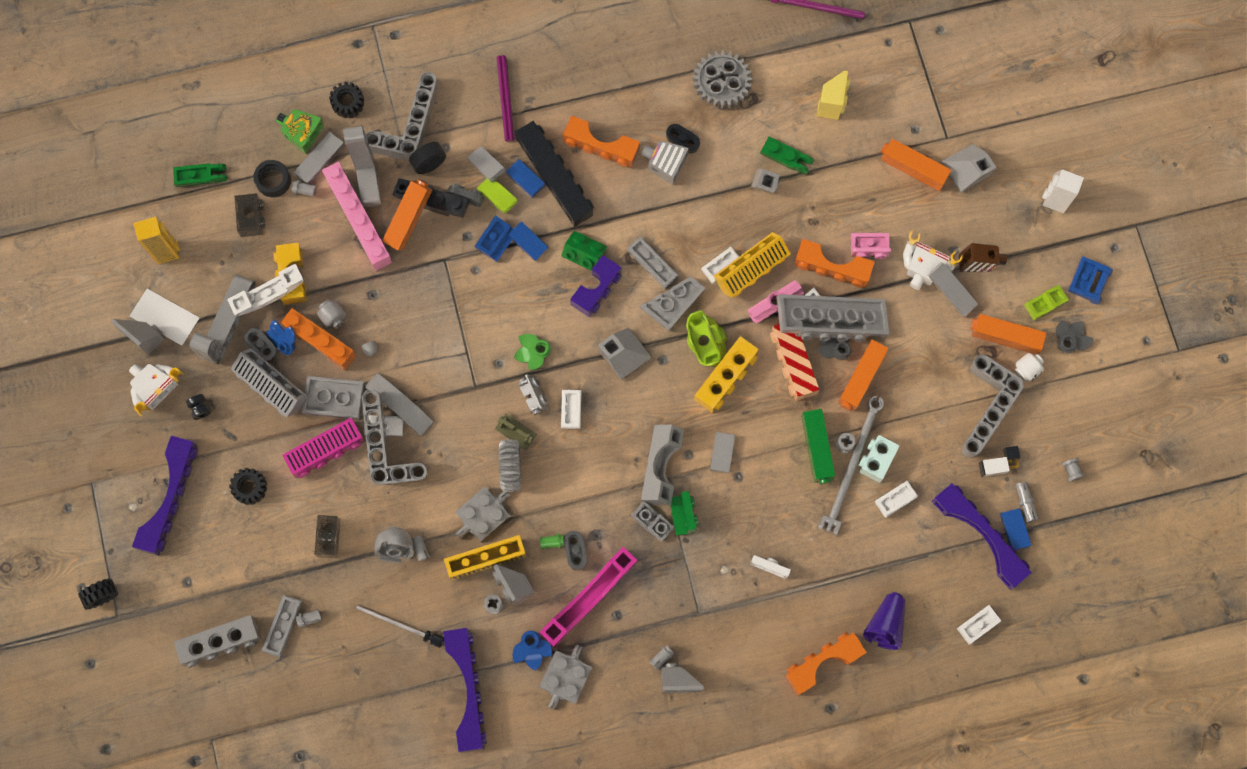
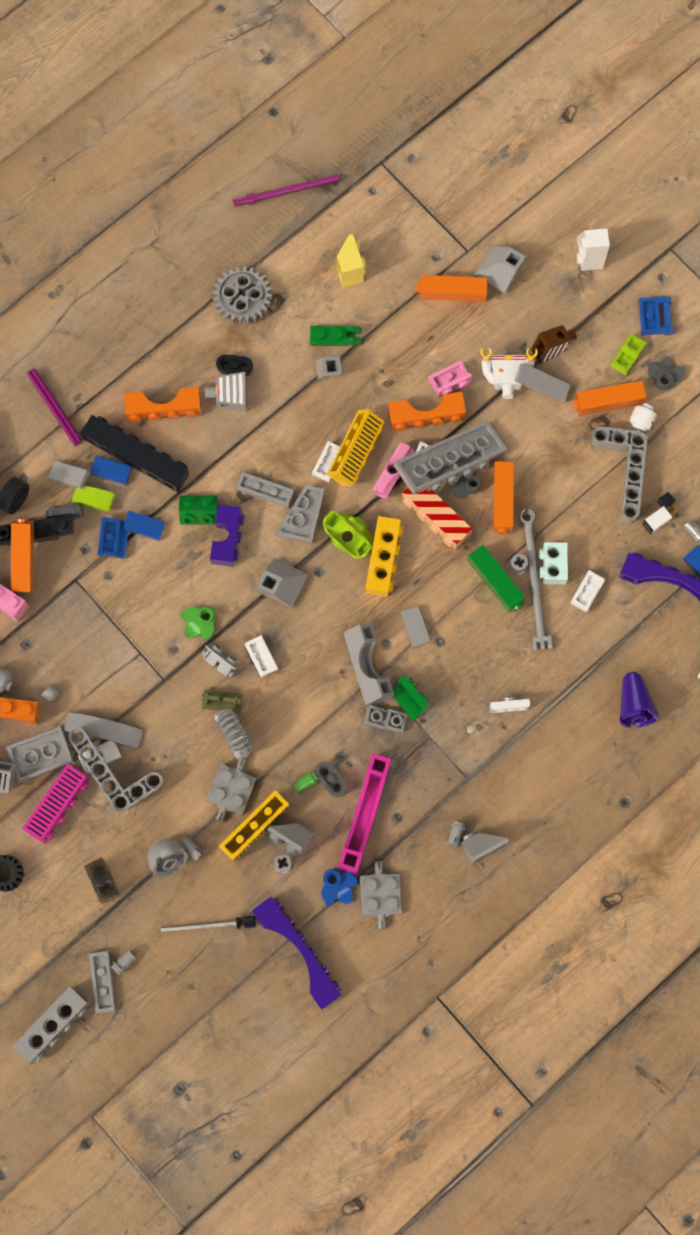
camera: 25 degrees left, 0 degrees up
(803, 676) = (588, 786): orange arch -> none

